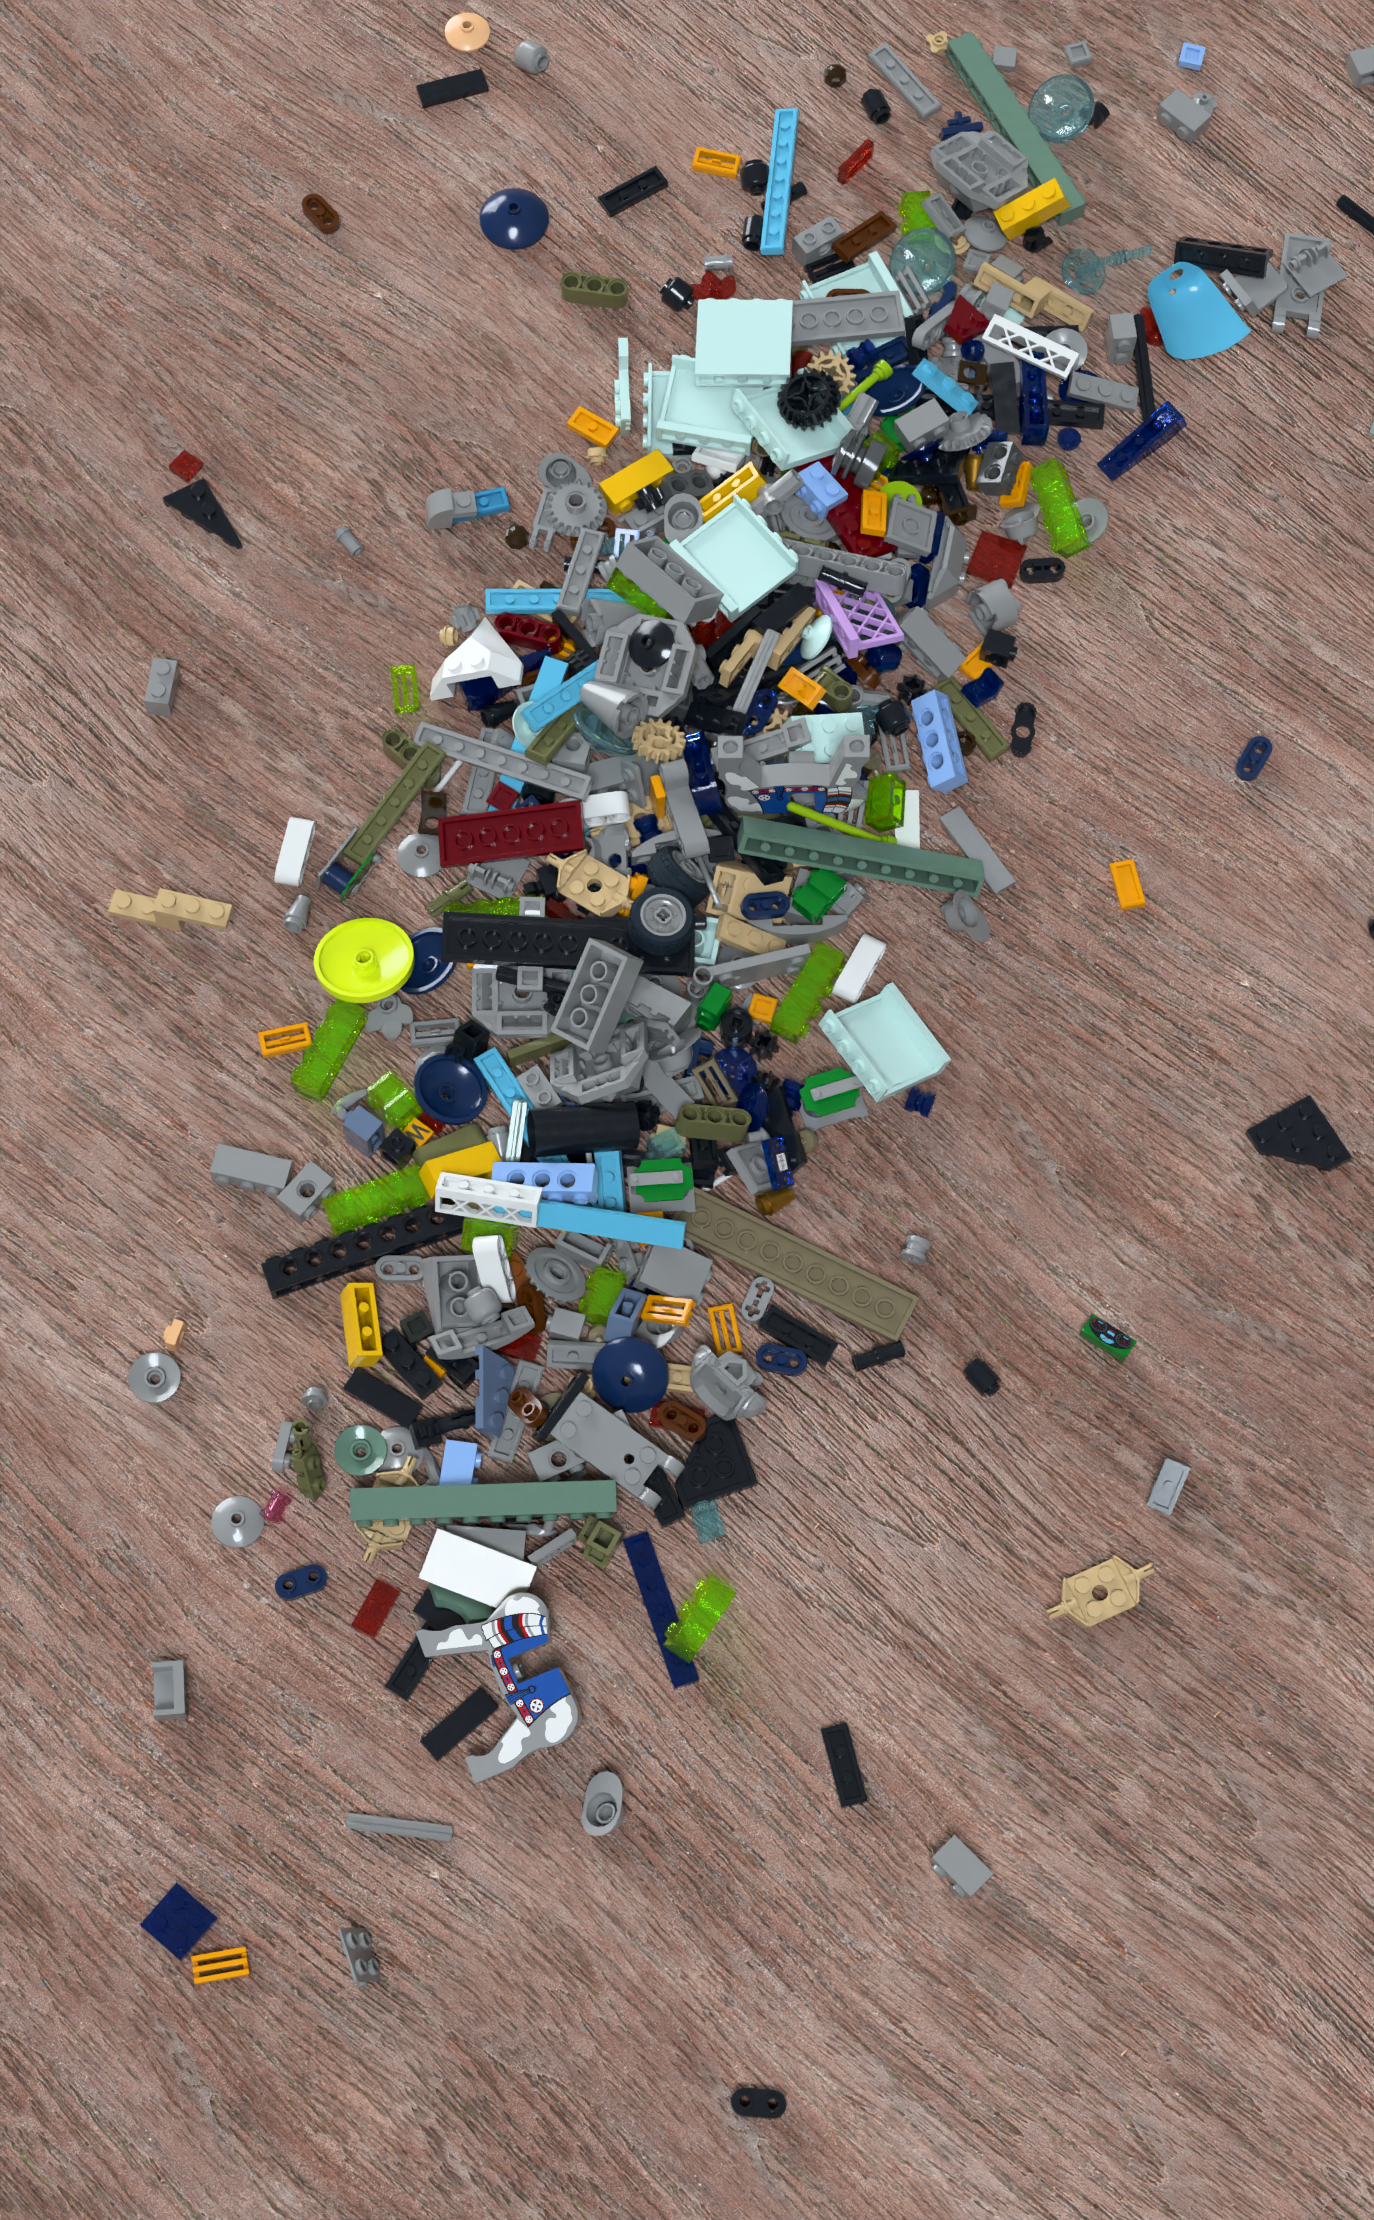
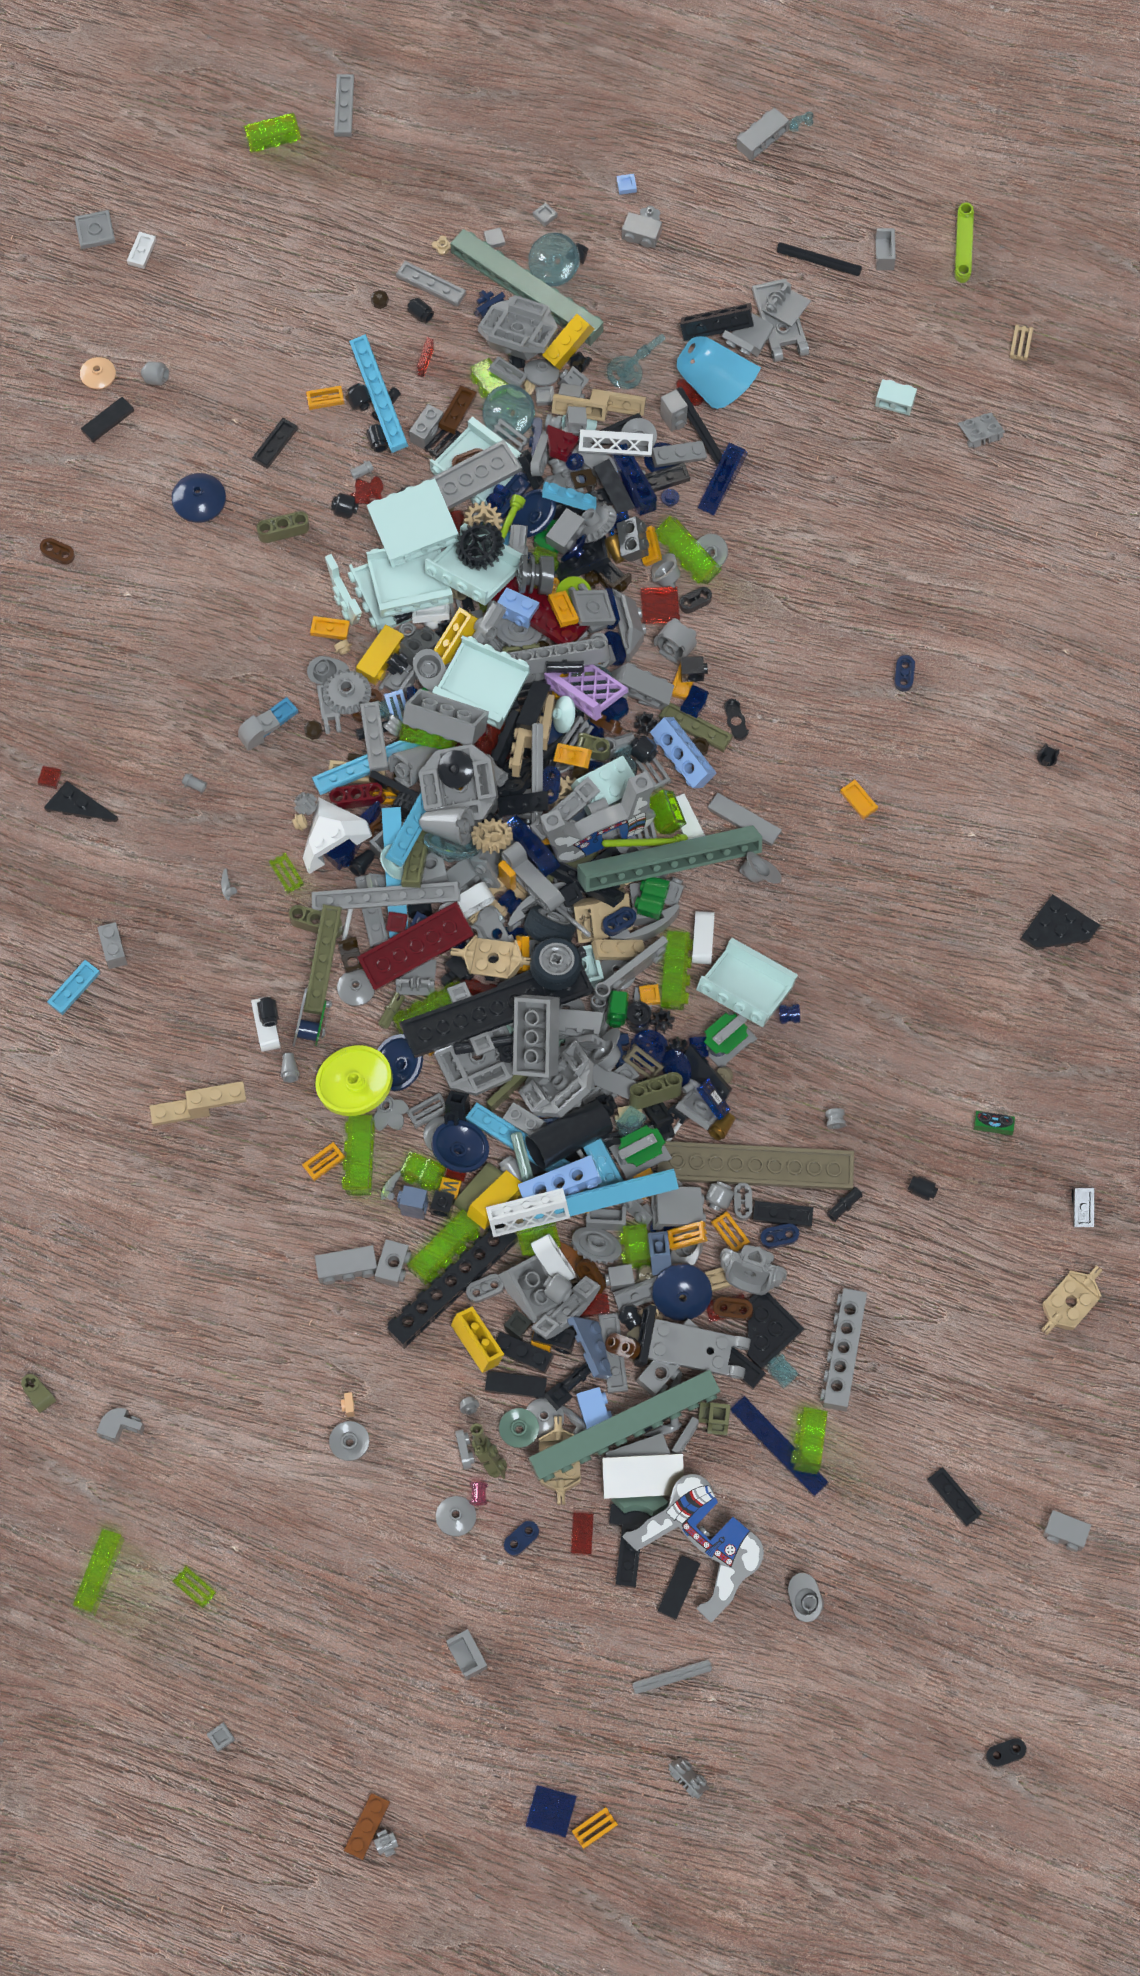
camera: 20 degrees left, 0 degrees up
(95, 716) = (73, 987): none -> medium azure plate
(301, 837) = (268, 1012): none -> black brick
(327, 676) = (226, 888): none -> light grey bar
(555, 1377) = (630, 1317): none -> black arm
(731, 1281) = (719, 1196): none -> light grey head
(760, 1586) = (848, 1299): none -> light grey brick
(1020, 254) = (573, 377): none -> light grey bracket

